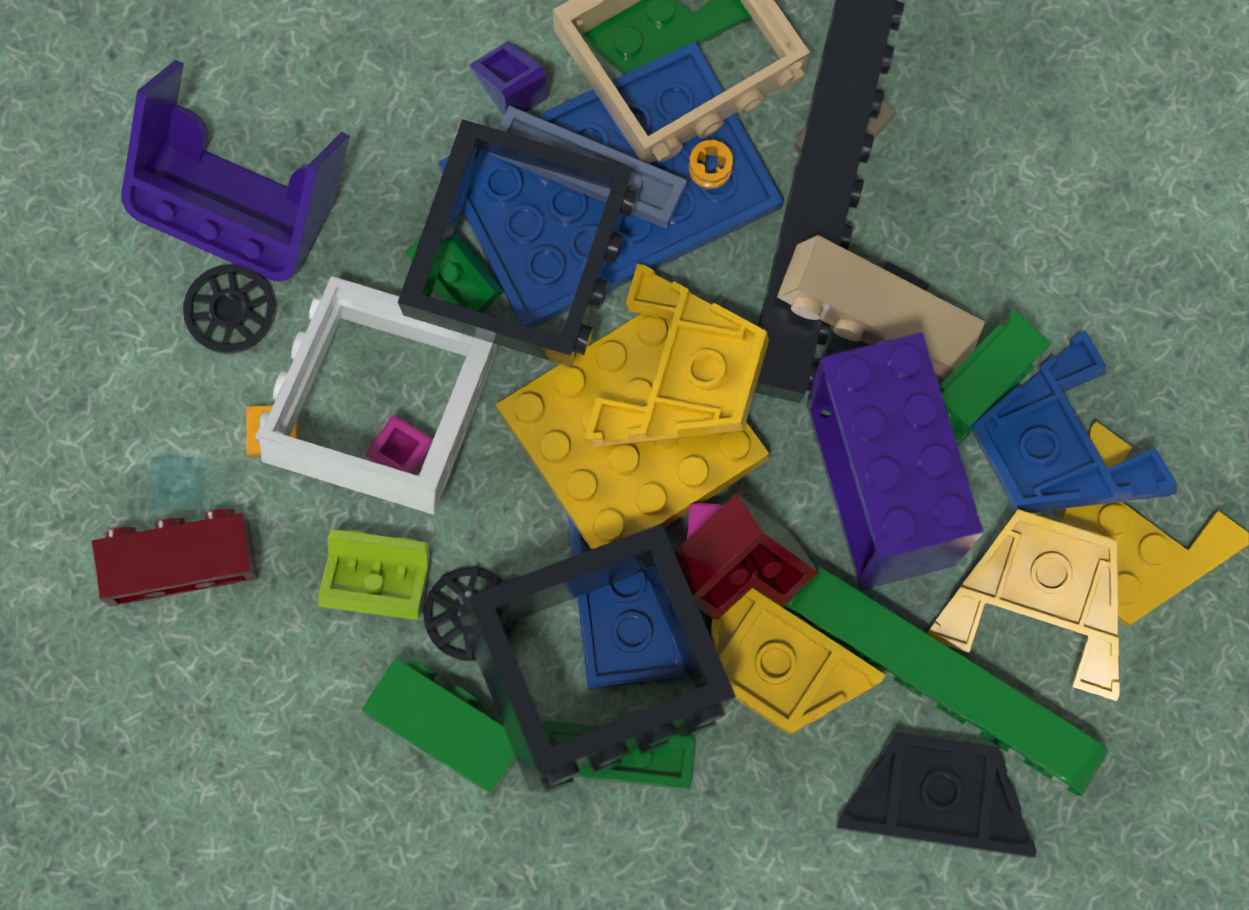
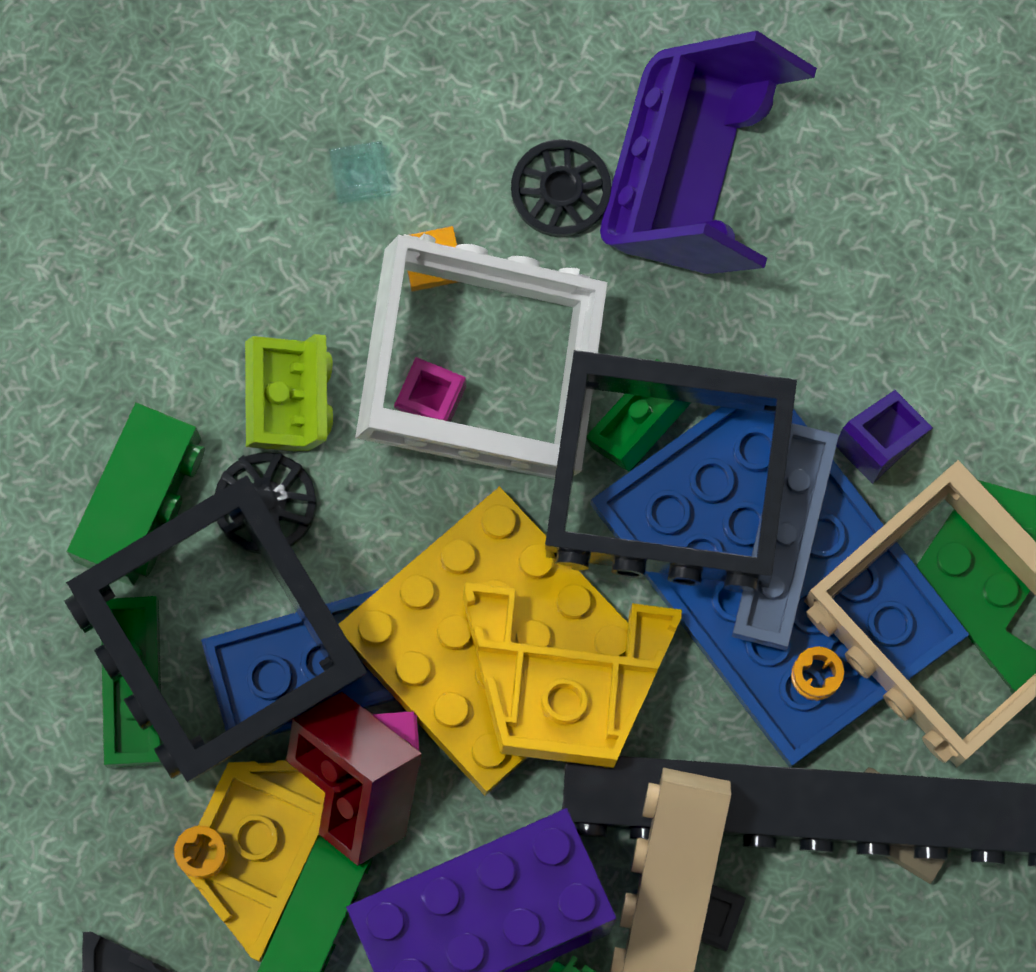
camera: 80 degrees right, 0 degrees up
(174, 557) = (275, 185): dark red brick -> none
(799, 703) = (192, 837): none -> light orange bush

